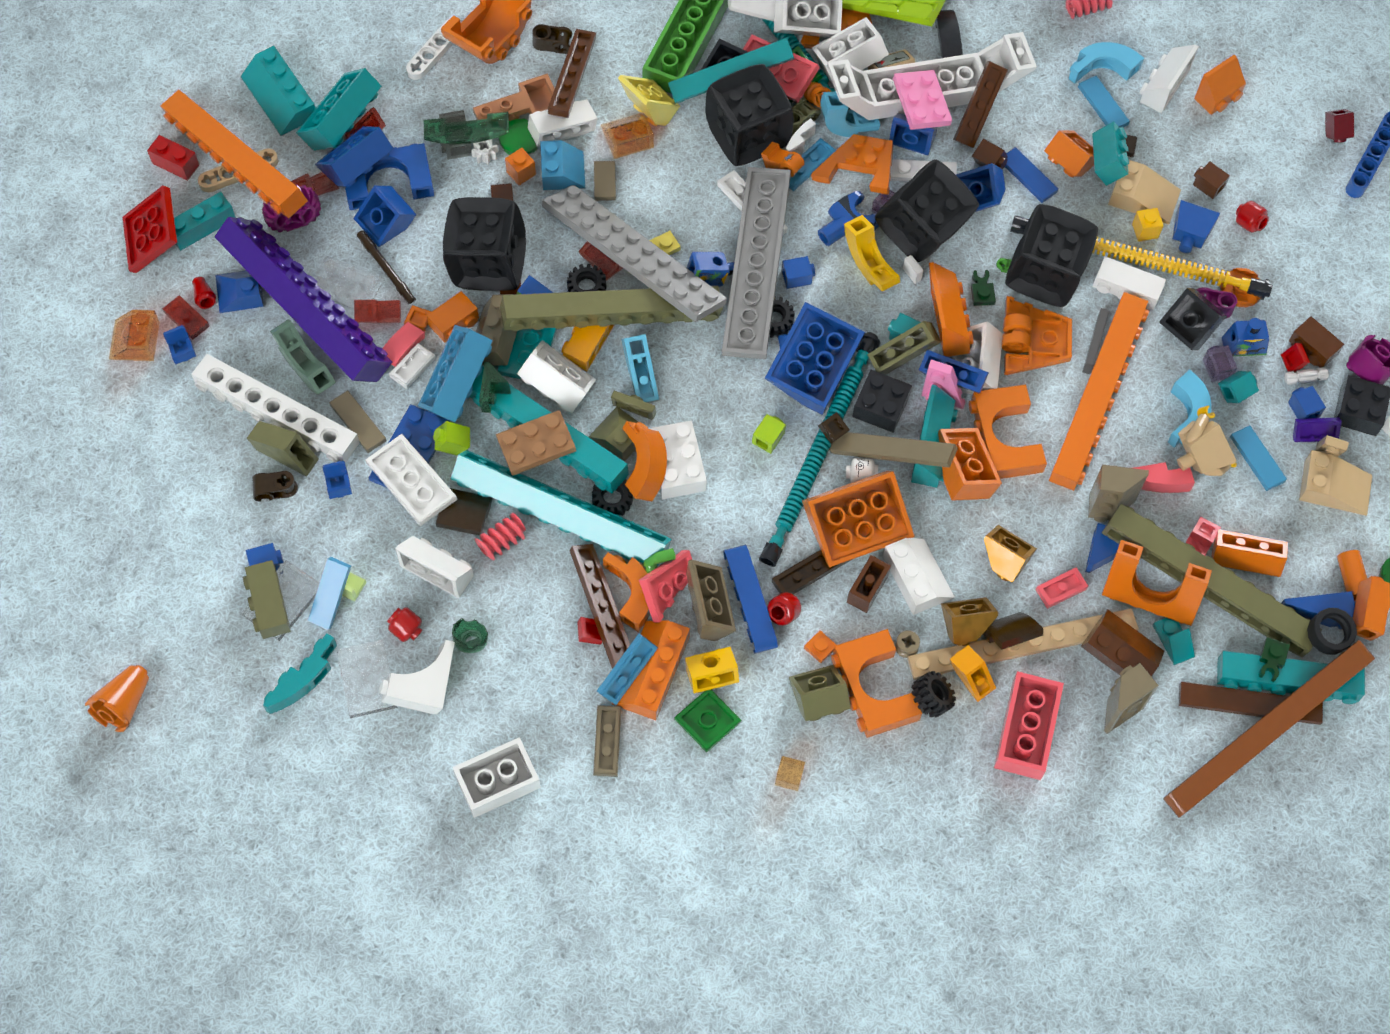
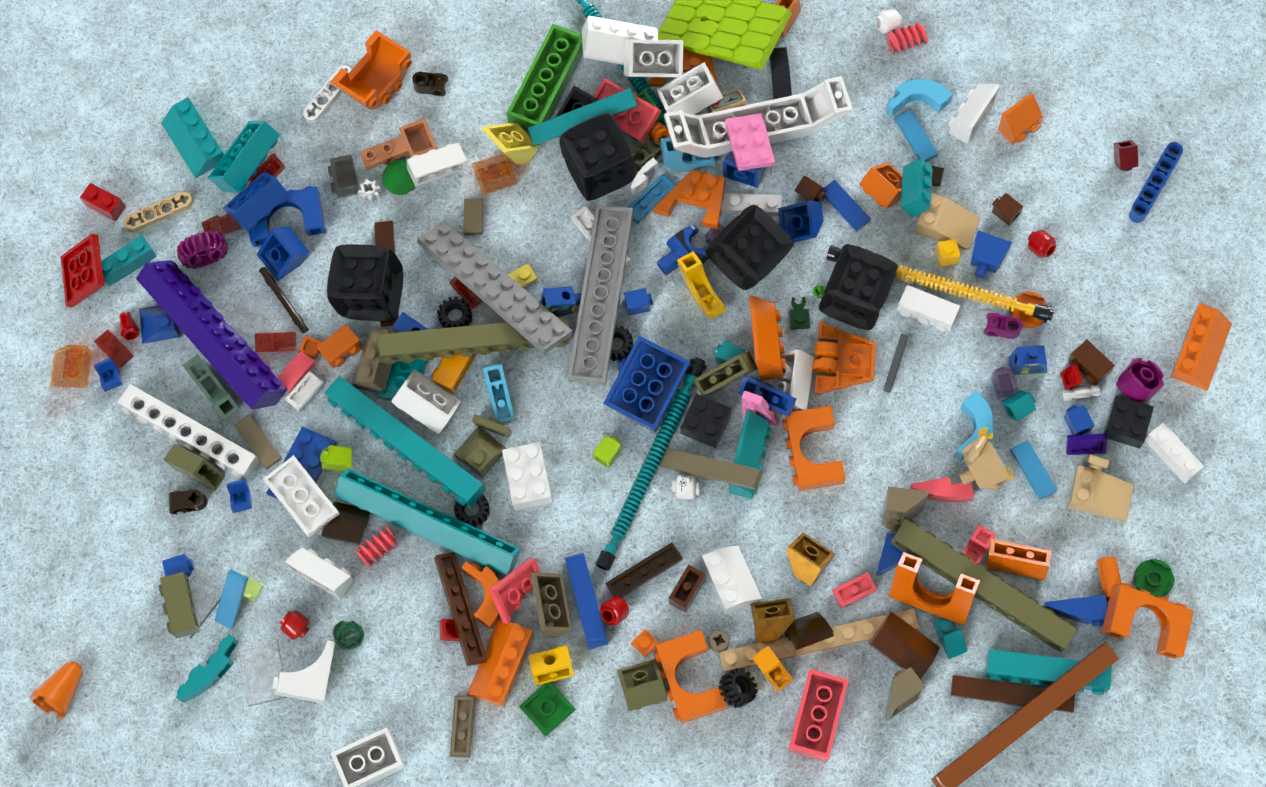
camera: 10 degrees right, 5 degrees up
(234, 154) = (152, 203): orange brick -> none
(455, 373) = (338, 402): dark azure slope -> none
(466, 131) = (353, 175): clear green slope -> none
(491, 384) = (367, 413): clear green slope -> none
(520, 166) = (399, 205): orange brick -> none
(536, 442) = (405, 465): medium nougat plate -> none
(561, 165) = (435, 204): dark azure slope -> none
(572, 73) = (445, 118): reddish brown plate -> none
(627, 669) = (479, 666): dark azure tile -> none
(650, 461) = (502, 481): orange arch -> none
(659, 557) = (502, 571): bright green arm -> none
(777, 158) = (626, 196): orange leg -> none
(789, 773) = (614, 756): clear orange piece -> none
(833, 428) = (662, 447): dark brown tile -> none
(858, 518) = (680, 530): orange slope -> none
(913, 269) = (738, 297): white tile -> none
(972, 469) = (779, 484): orange slope -> none
(980, 104) = (803, 142): reddish brown plate -> none
(1098, 392) = (895, 410): orange brick -> none
(1192, 319) = (981, 343): black brick -> none
(1274, 655) = (1033, 654): dark green plate -> none
(1346, 623) = (1098, 626): black tyre -> none

